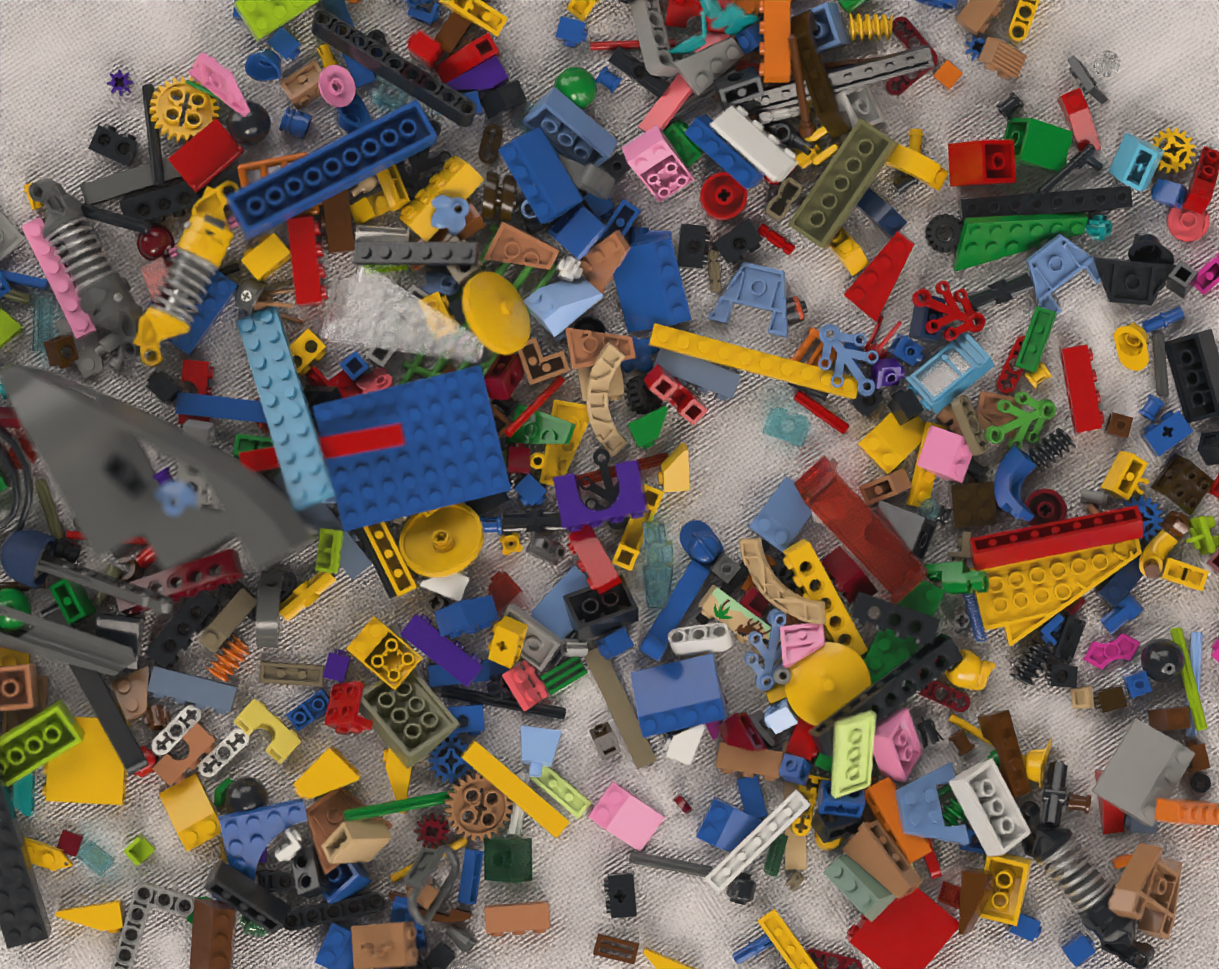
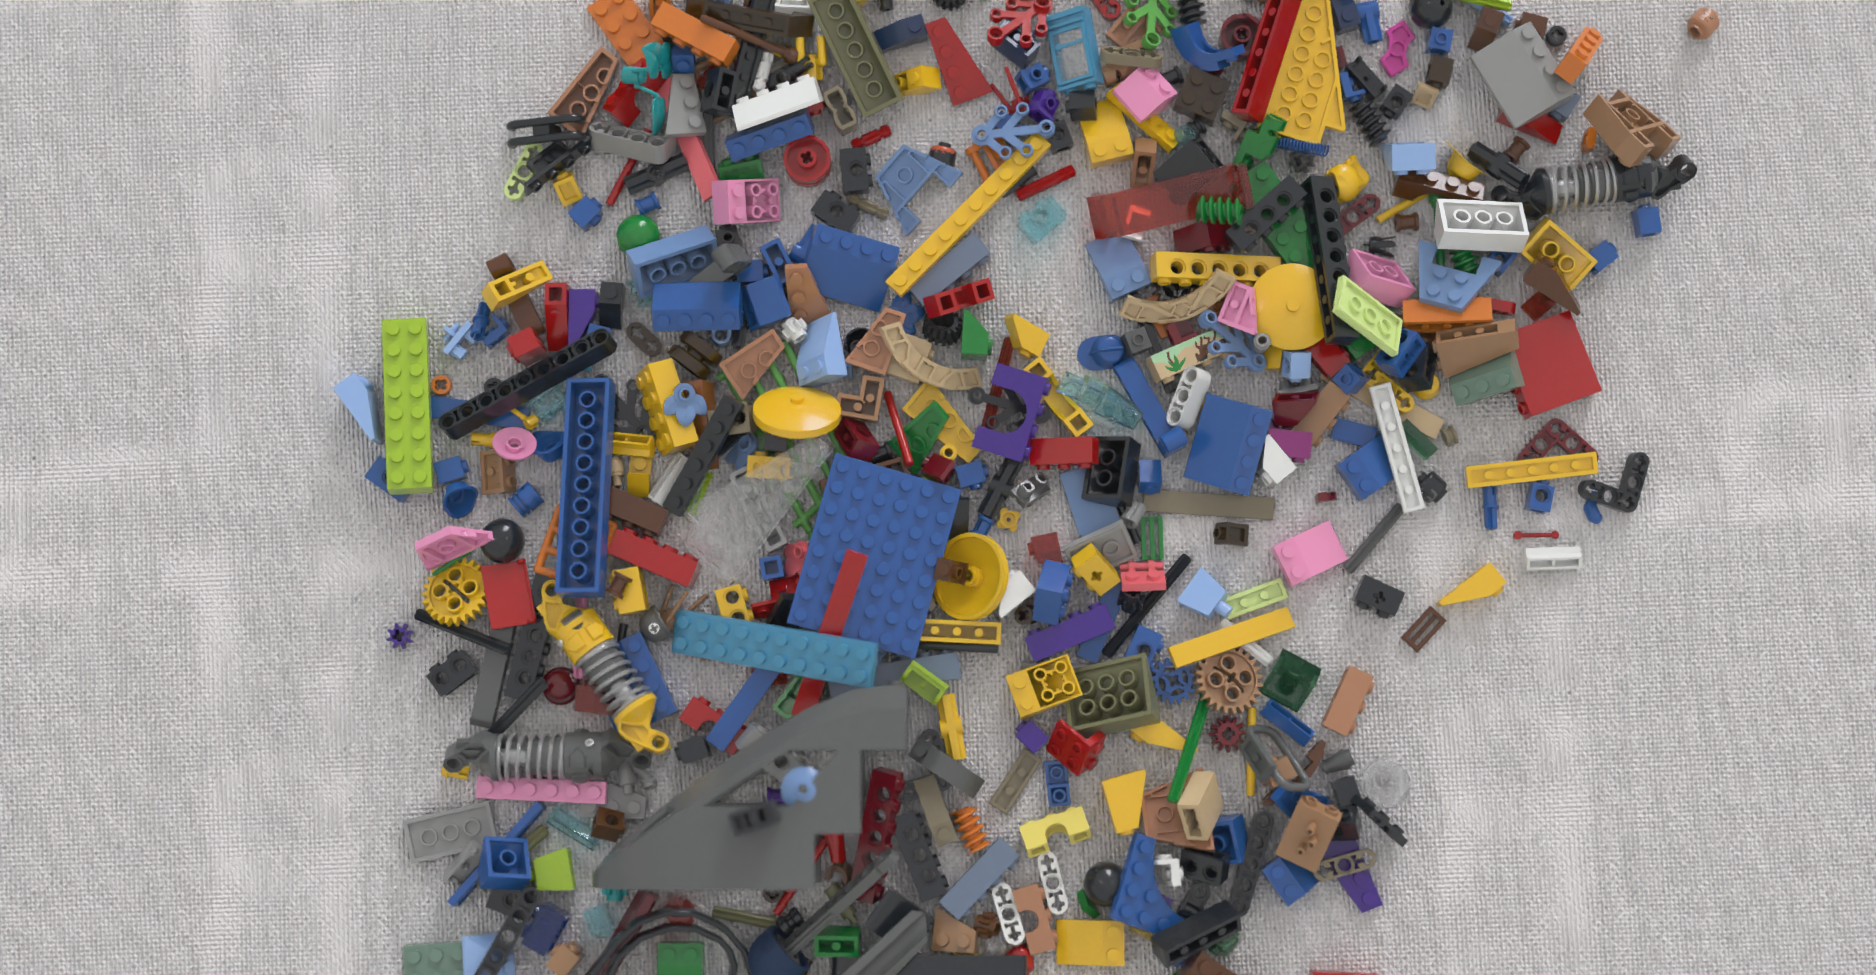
camera: 65 degrees left, 5 degrees down
(264, 246) = (618, 585): none -> reddish brown bush
(363, 87) = (529, 422): none -> yellow hand
(436, 520) = (951, 571): none -> reddish brown brick
(709, 750) = (1293, 443): none -> magenta slope
(873, 577) = (1219, 210): none -> green piece
(1017, 713) = (1409, 156): none -> light blue slope

